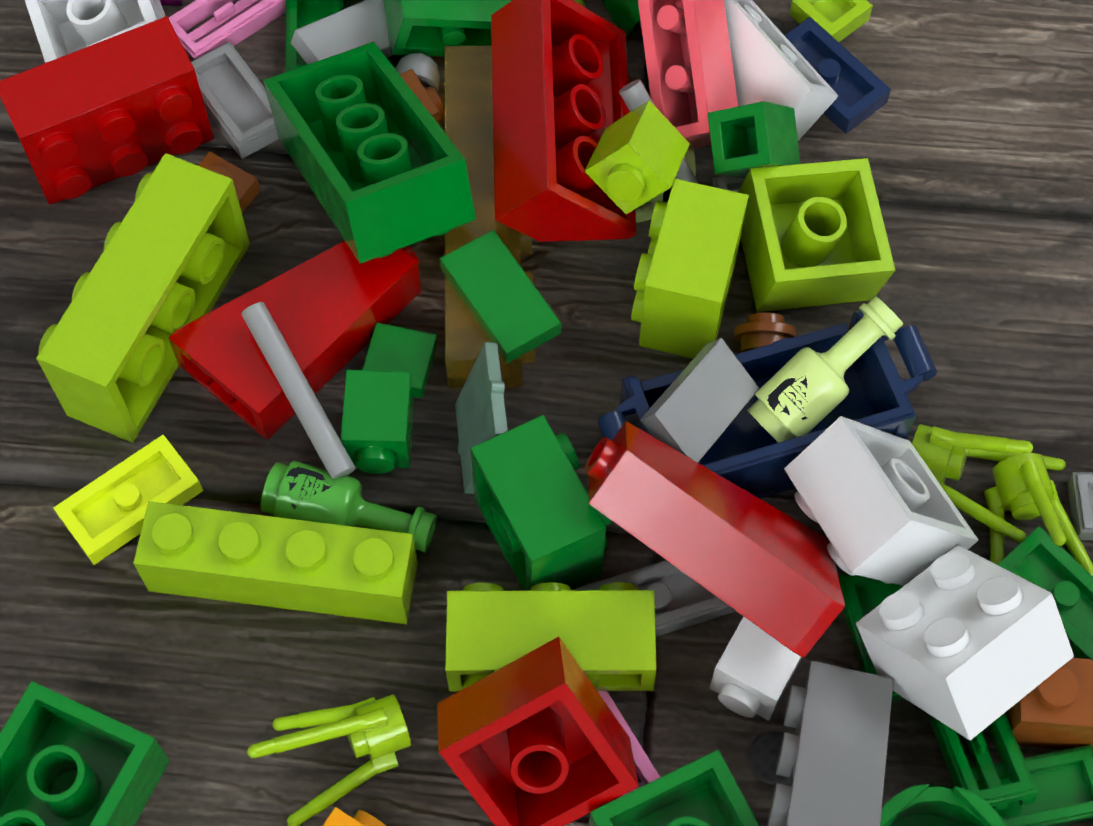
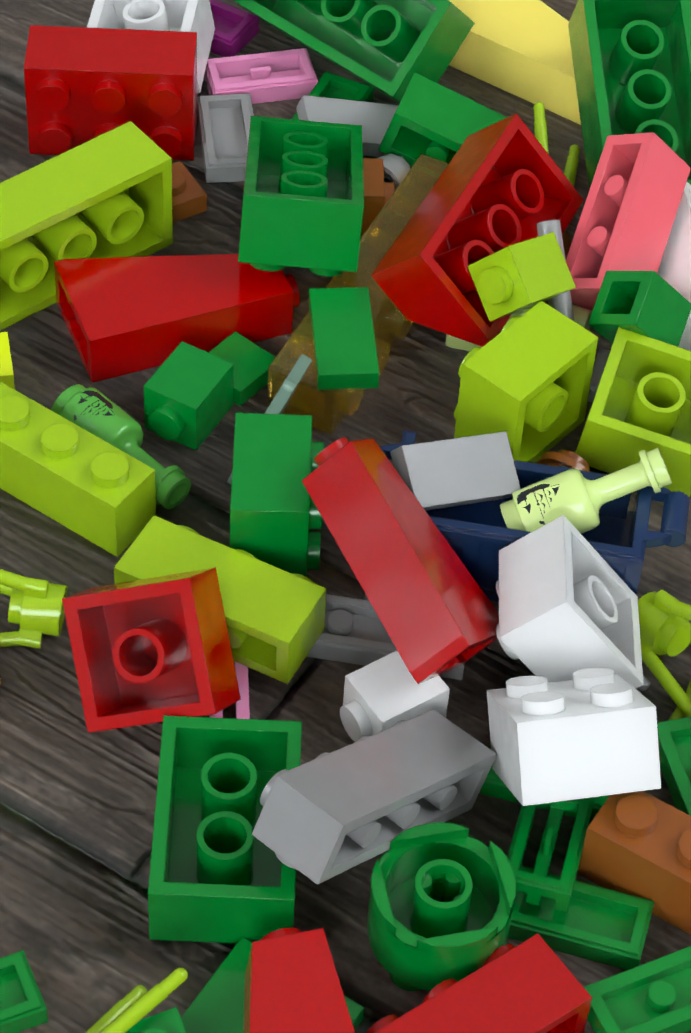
camera: 25 degrees right, 15 degrees down
(298, 390) = (131, 335): light grey bar -> none

